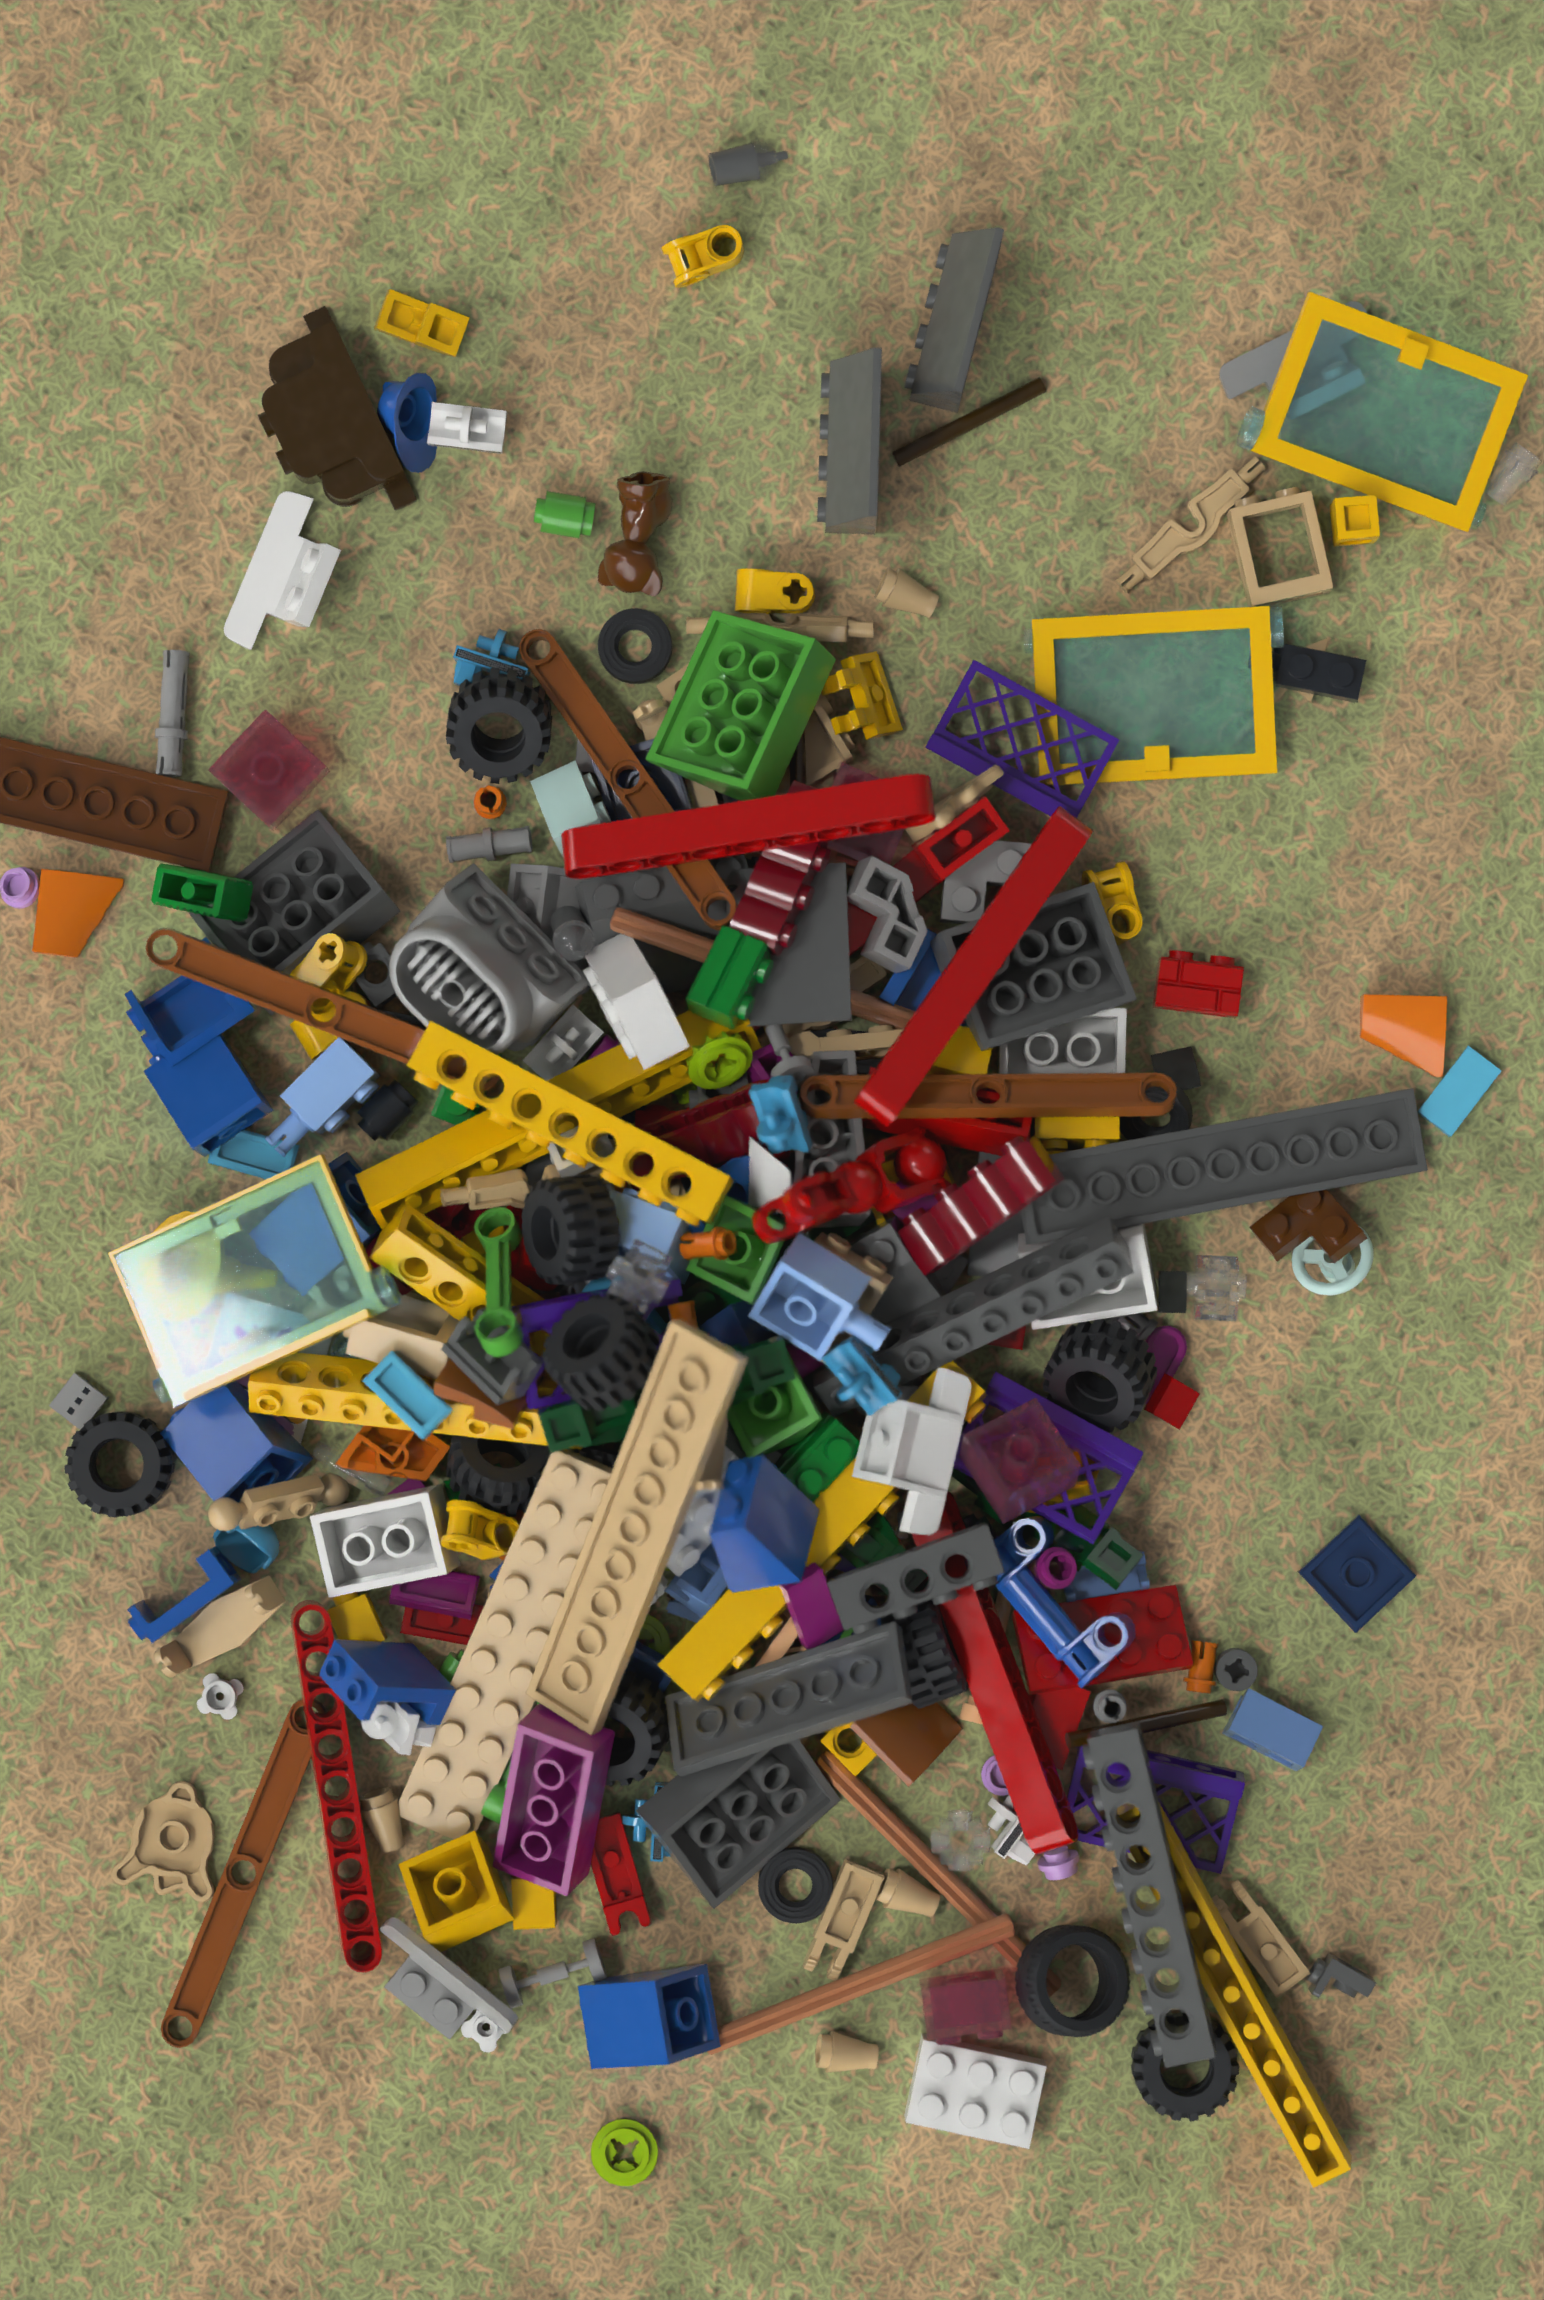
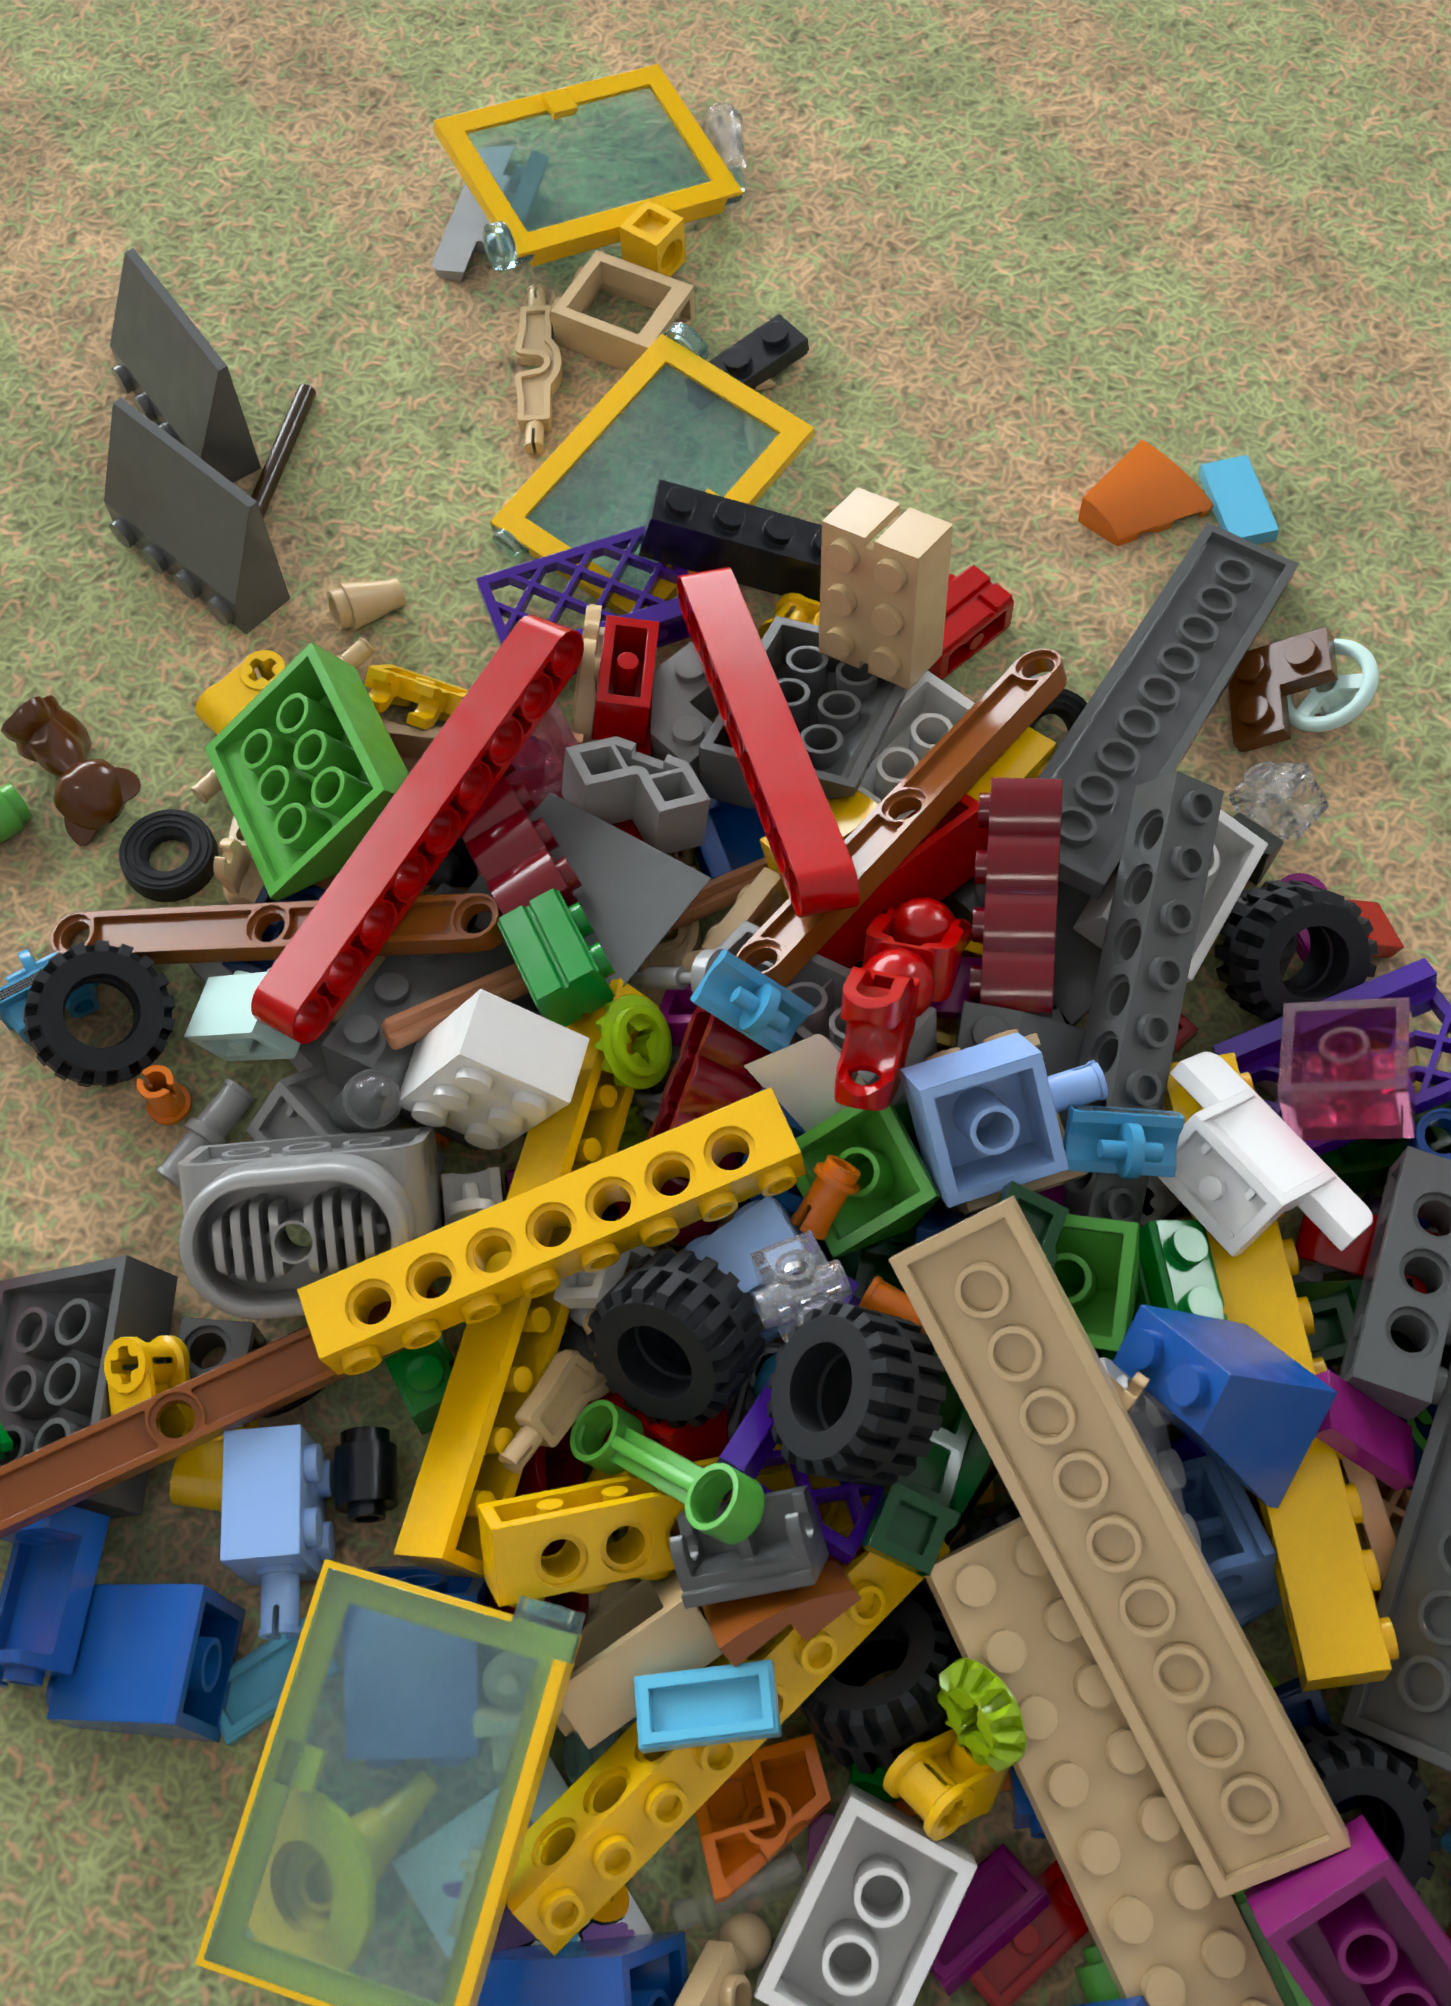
camera: 45 degrees left, 25 degrees down
(512, 1525) = (982, 1714): none -> lime gear
(1120, 976) = (887, 596): none -> tan piece
(1137, 813) = (716, 532): none -> black brick

